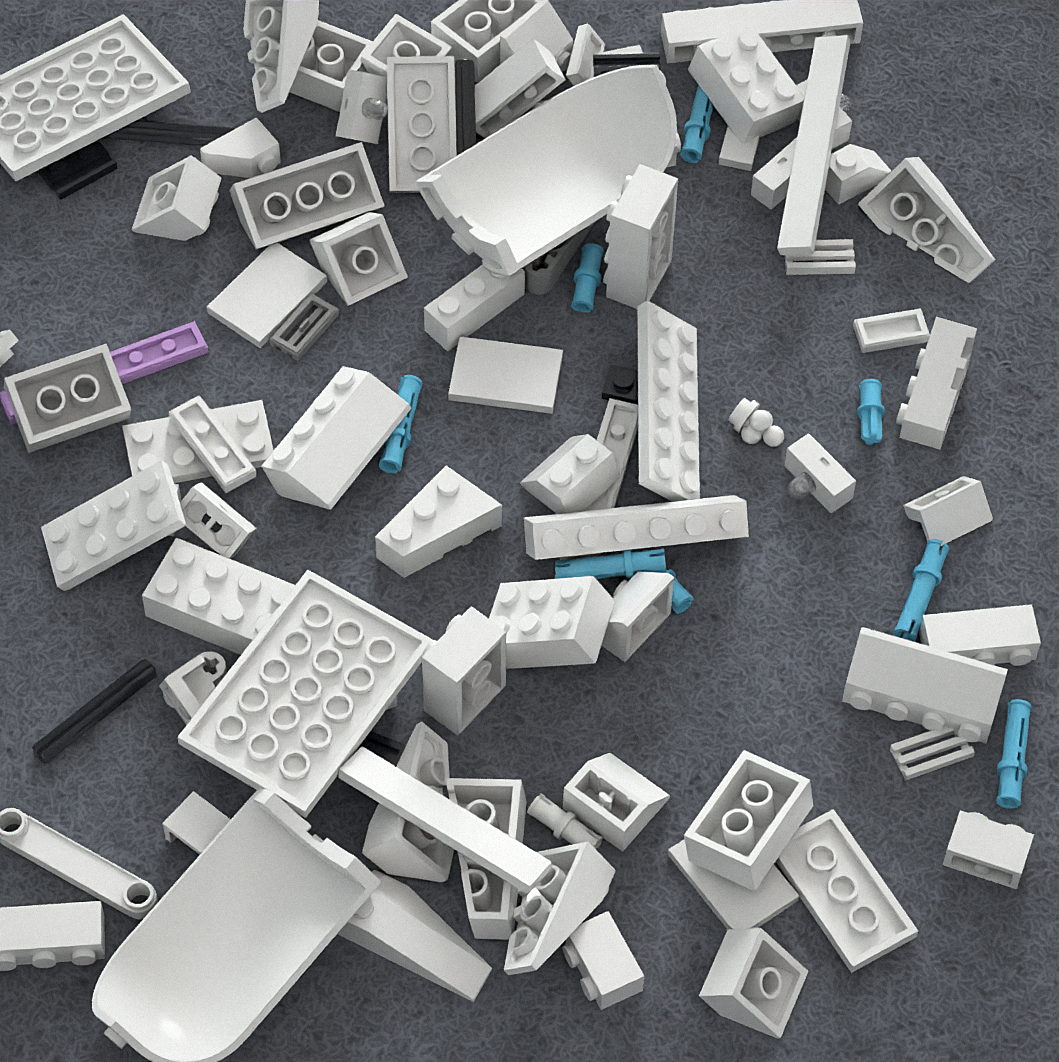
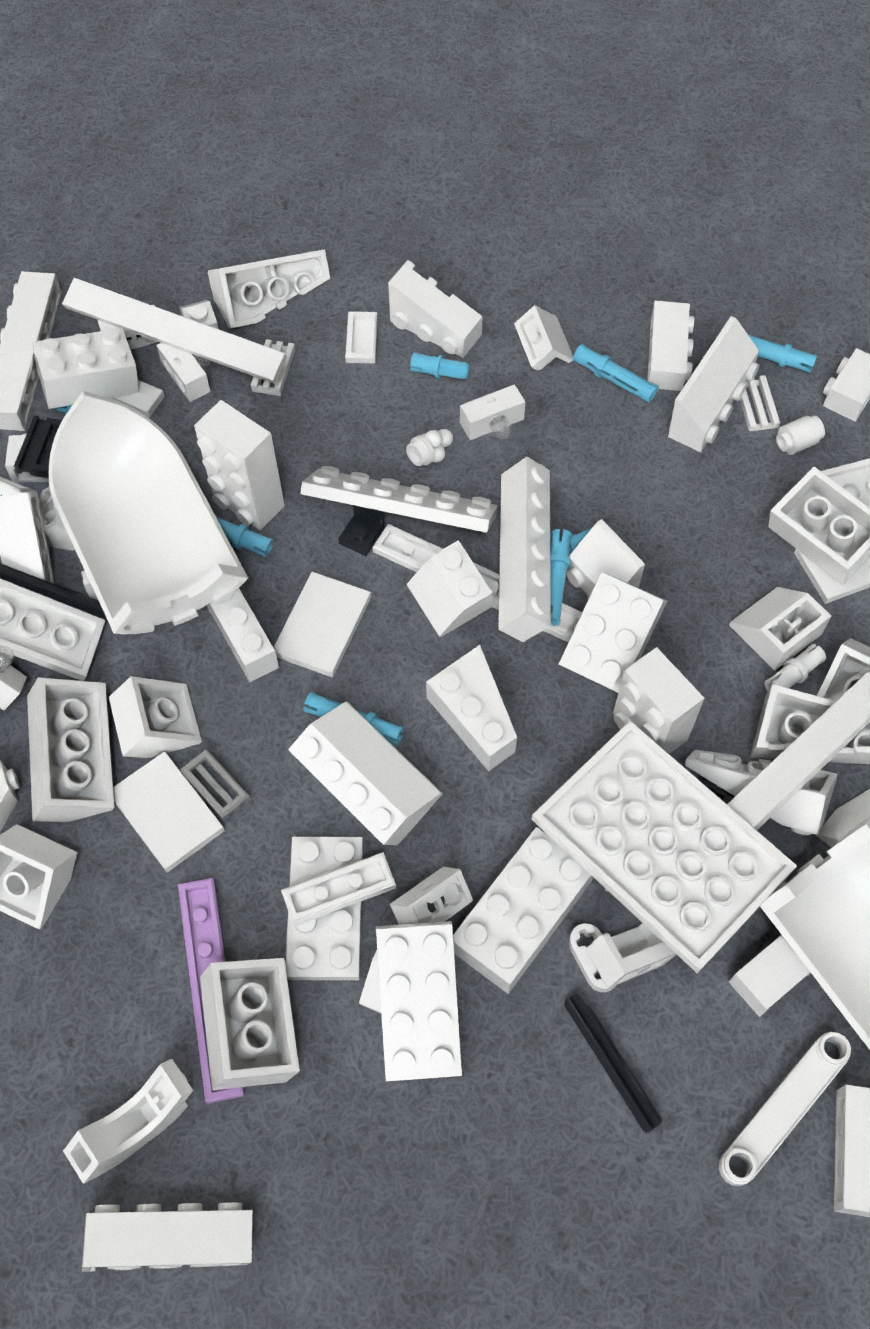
camera: 75 degrees left, 5 degrees up
(891, 795) = (800, 434): none -> white brick

